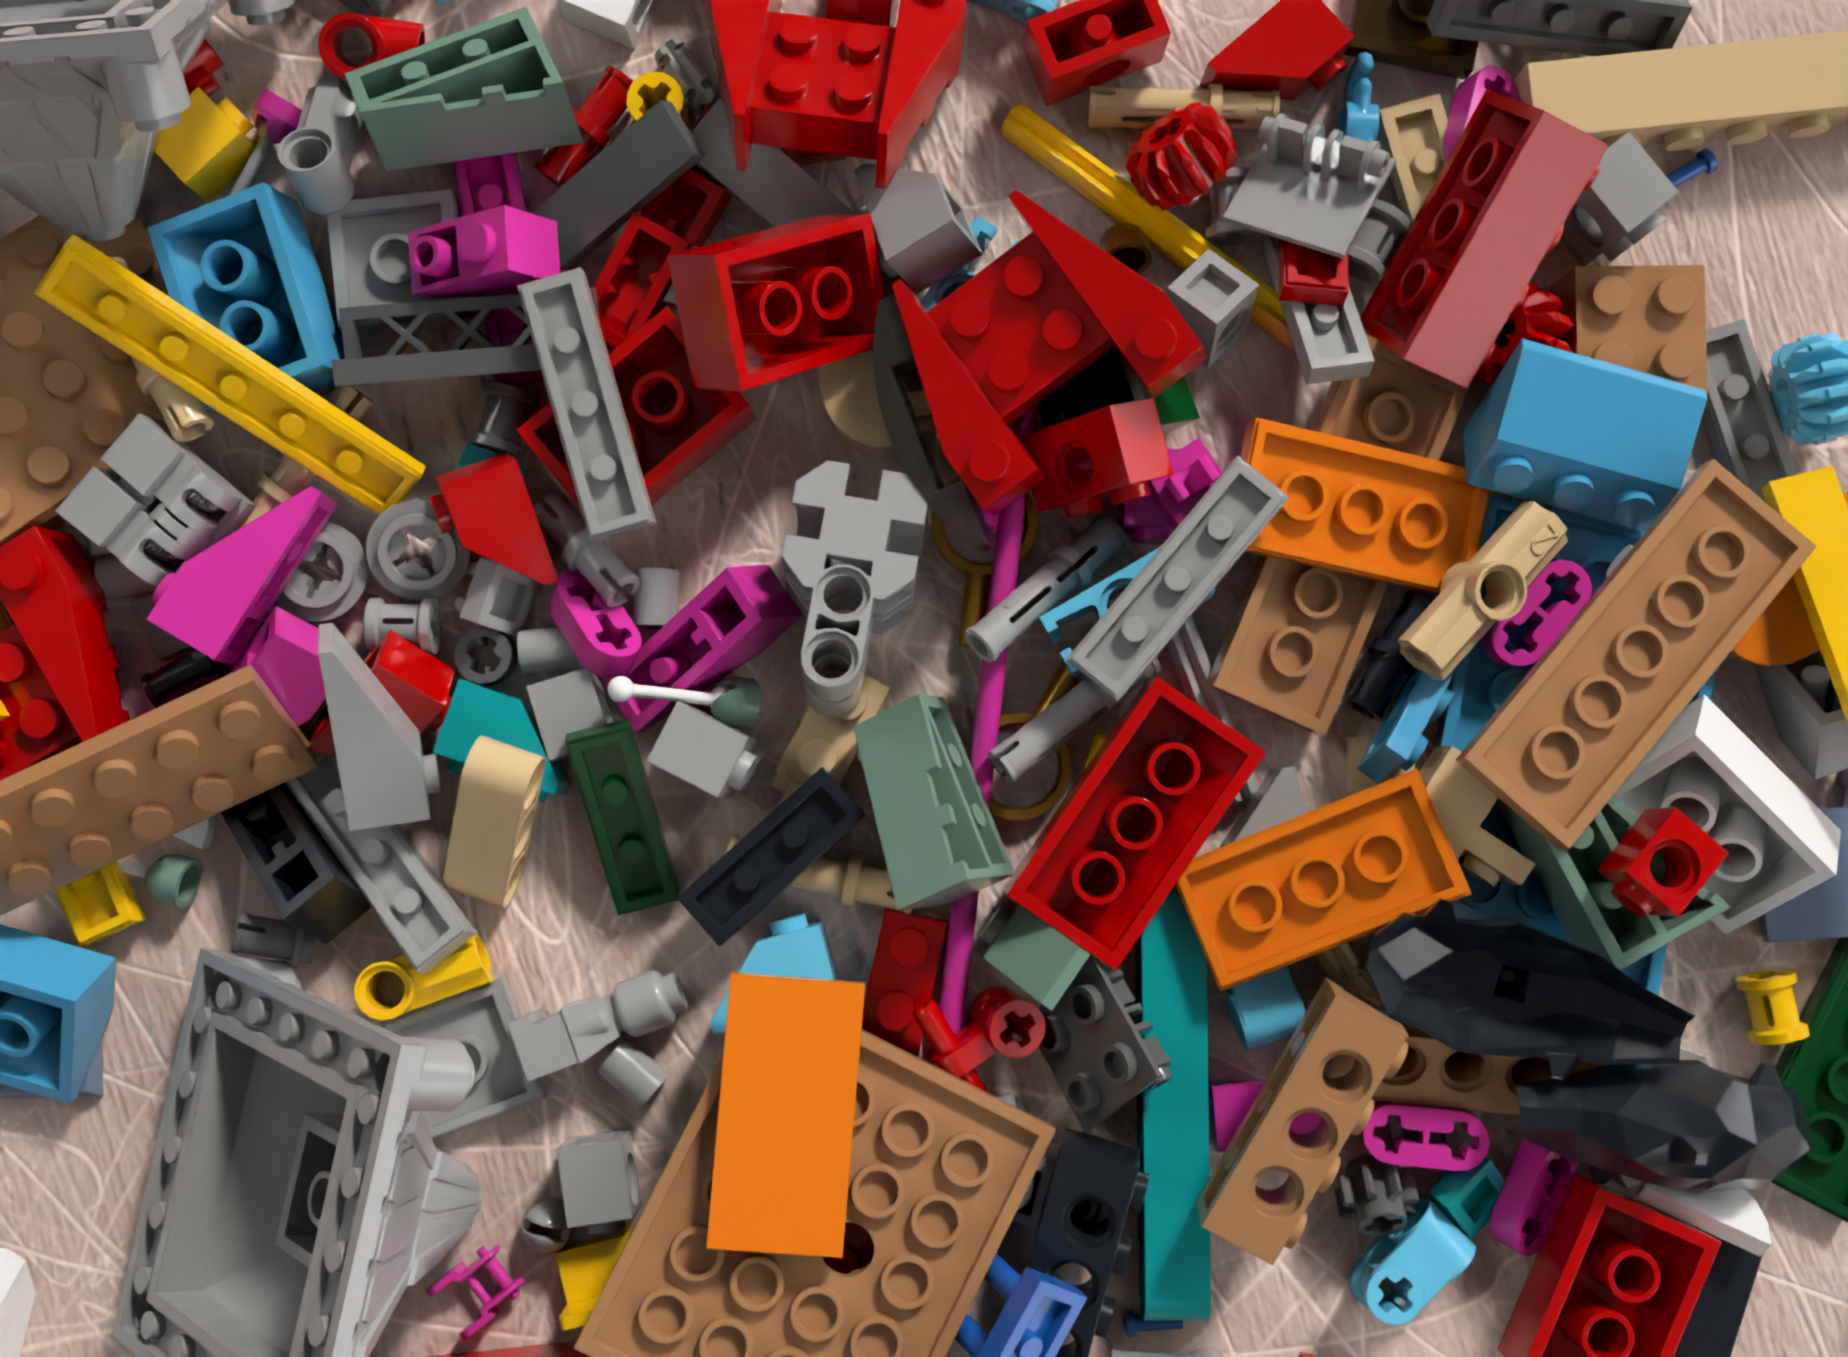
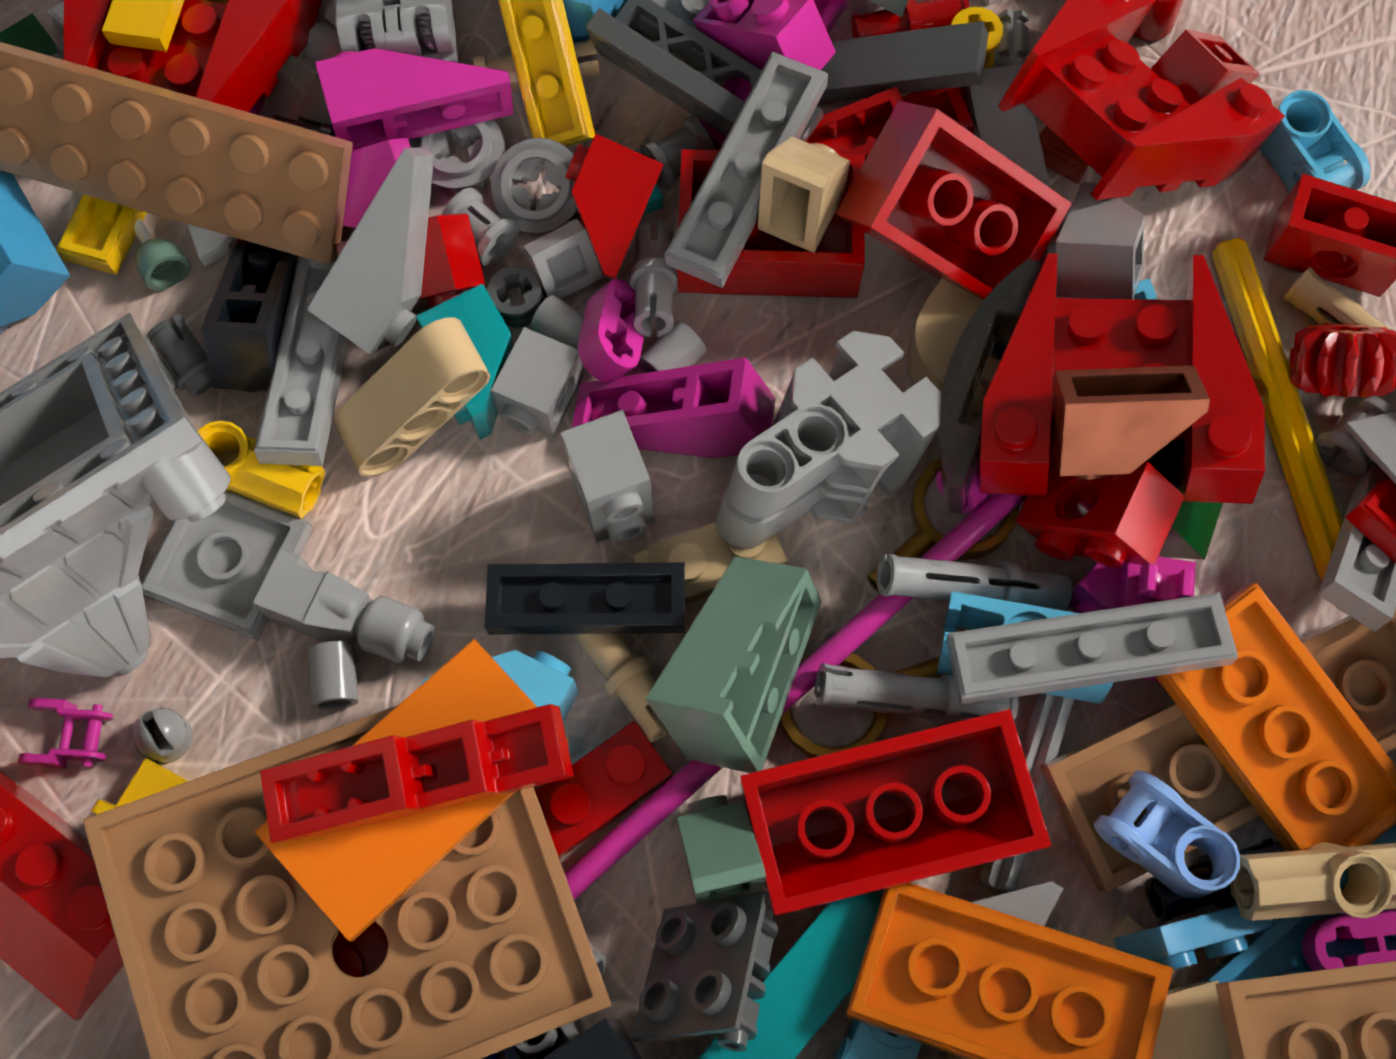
camera: 40 degrees right, 15 degrees down
(599, 1180) = (229, 727): light grey brick -> none
(623, 816) = (504, 478): dark green tile -> none
(652, 392) = (800, 191): none -> tan slope
(731, 700) = (663, 463): hinge -> none
(785, 1110) = (415, 773): none -> red slope
(984, 1035) = (617, 885): red piece -> none
(1062, 387) = (1120, 416): none -> slope
(1214, 302) = (1292, 487): light grey brick -> none
(1335, 667) = (1164, 834): none -> light blue piece

